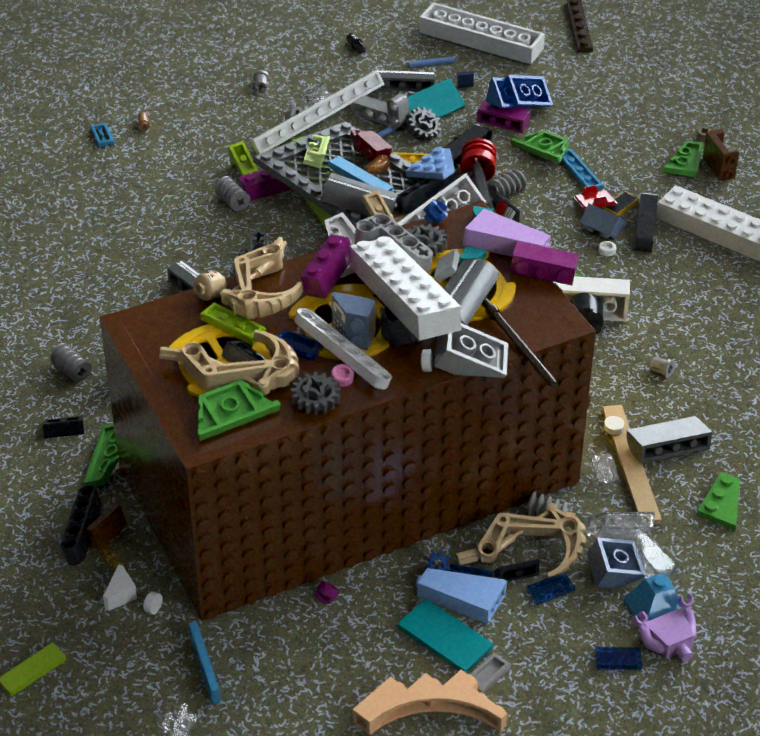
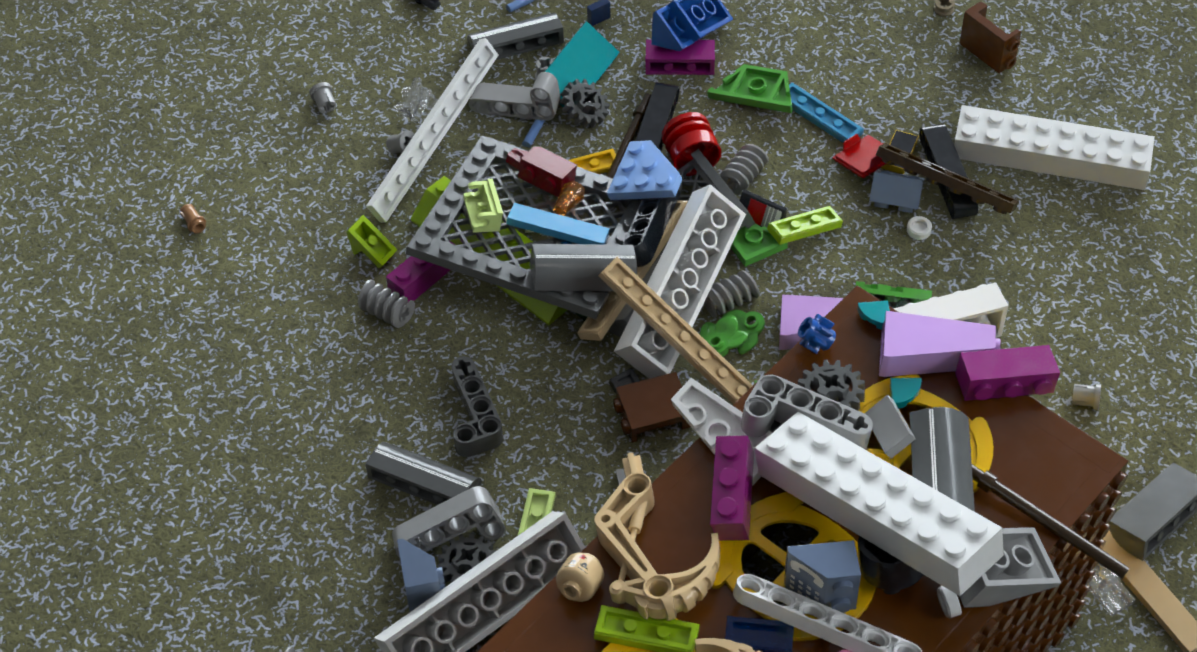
camera: 20 degrees left, 10 degrees up
(104, 142) = (154, 271): dark azure tile -> none
(543, 225) = (804, 225): none -> lime tile
(641, 224) = (955, 182): none -> dark brown plate
(686, 160) = (946, 55): bright green wing -> none

